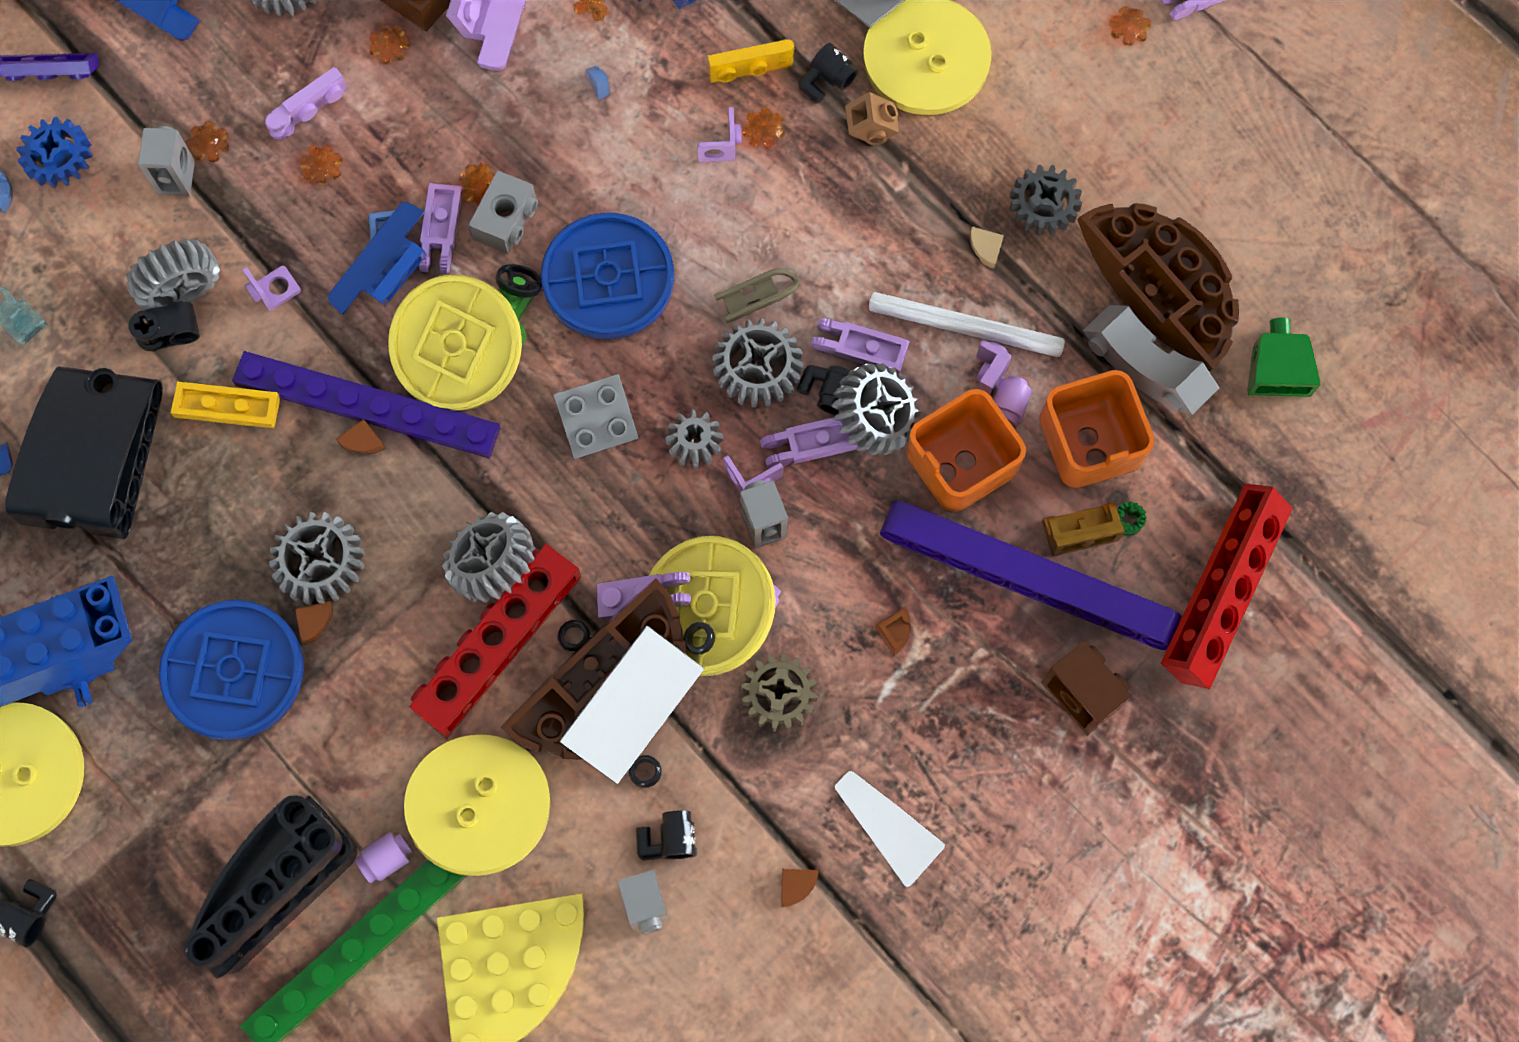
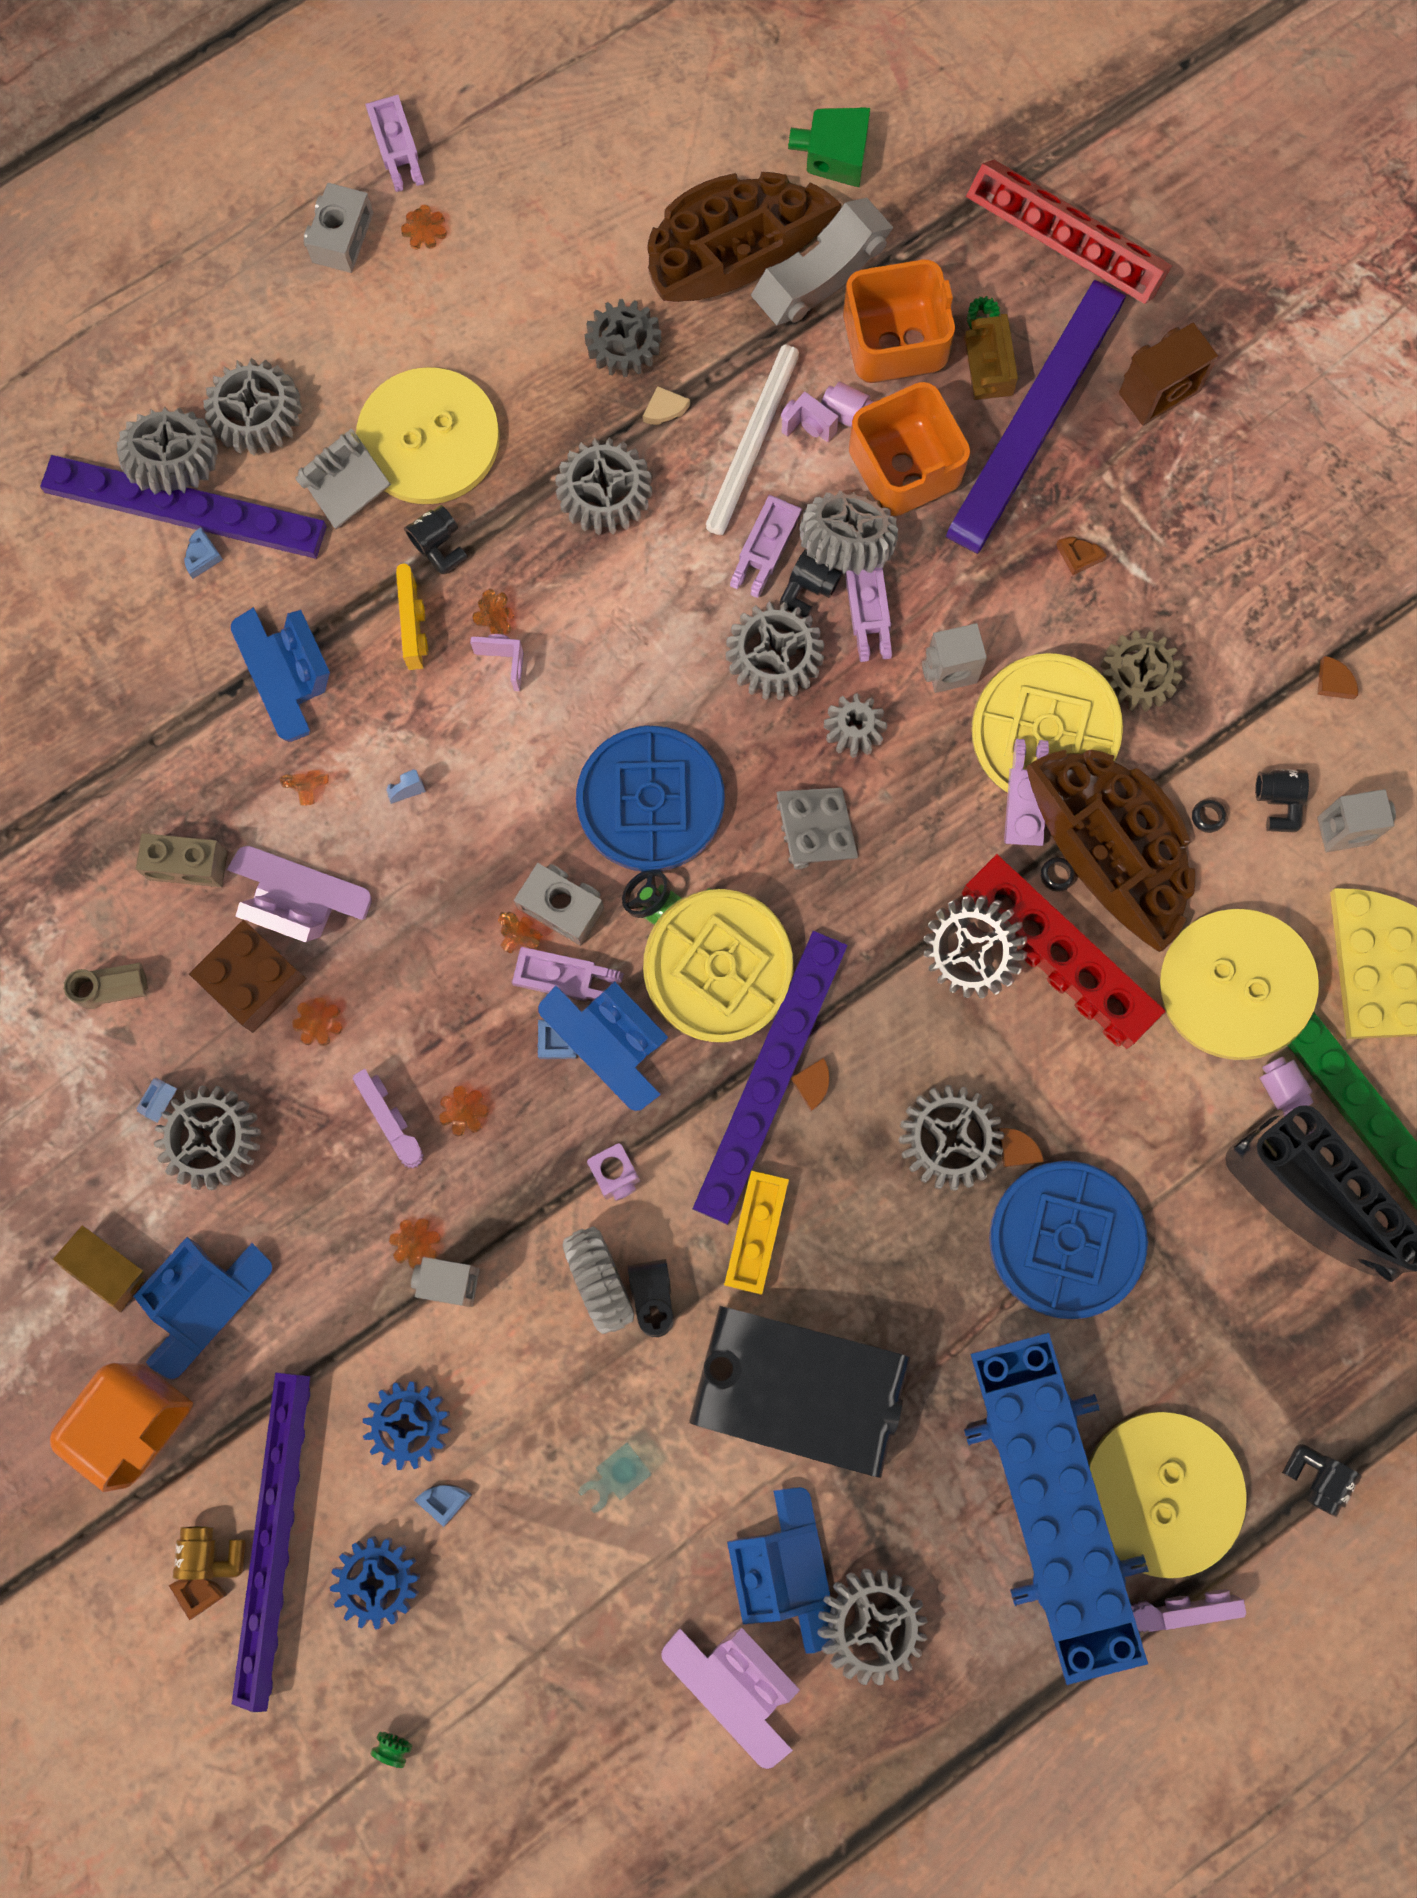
camera: 80 degrees left, 5 degrees up
(631, 704) = (1150, 812): white tile -> none
(708, 643) = (1074, 731): black piece -> none
(764, 292) = (690, 636): dark tan piece -> none
(773, 473) = (913, 664): lavender bracket -> none
(872, 119) = (505, 495): medium nougat brick -> none
(896, 834) = (1286, 582): white sticker -> none
(904, 185) = (599, 457): none -> light grey gear

